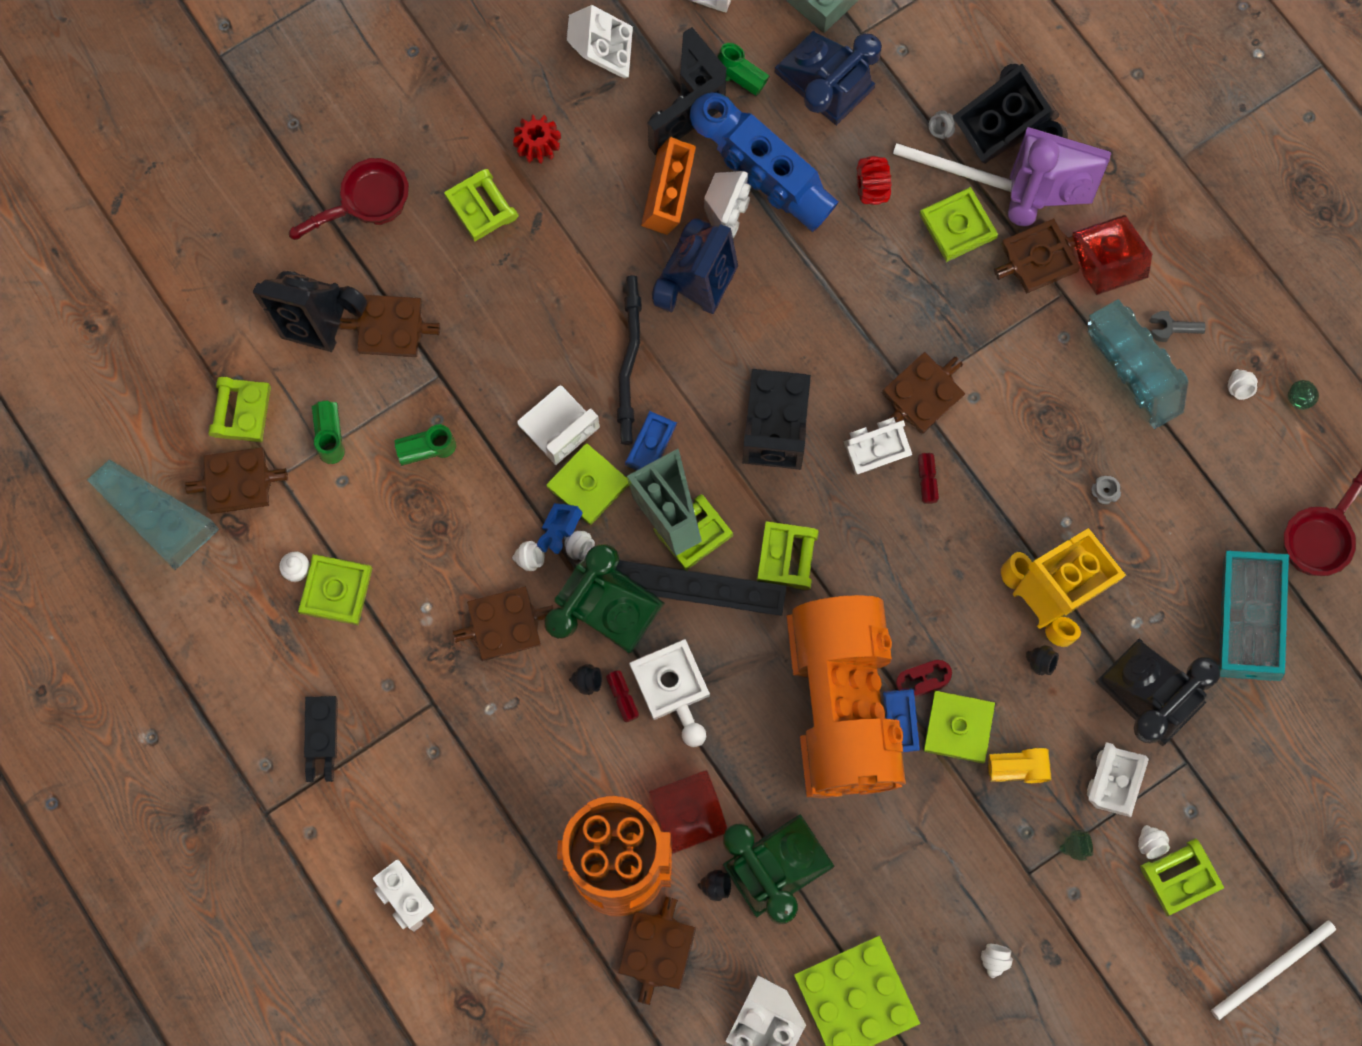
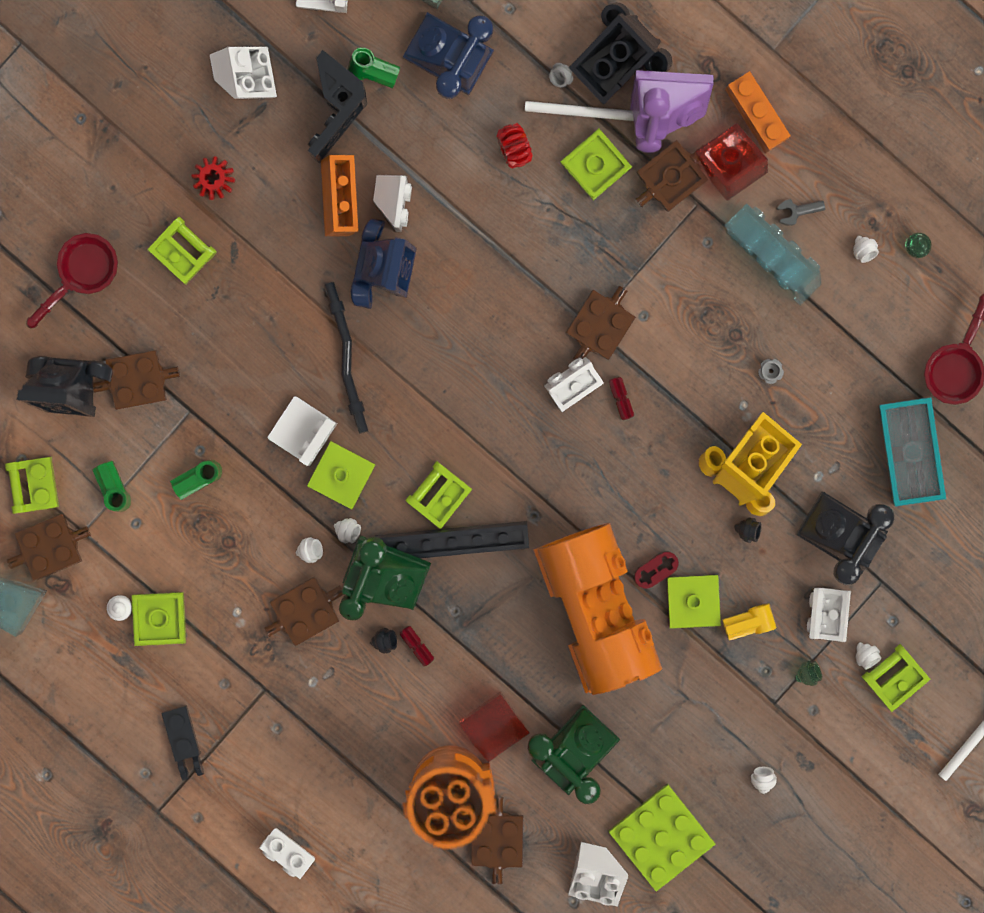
camera: 20 degrees left, 15 degrees up
(558, 524) = (327, 517): blue plate -> none
(651, 441) = (384, 428): blue plate -> none
(665, 700) = (452, 641): white plate -> none
(666, 501) = (412, 479): sand green wedge -> none
(716, 885) = (530, 778): black plate -> none
(768, 160) = (390, 139): blue brick -> none
(776, 419) = (483, 379): black bracket -> none
(777, 555) = (513, 498): lime plate -> none
(901, 706) = (646, 607): blue plate -> none
(1150, 210) = (757, 112): none -> orange brick

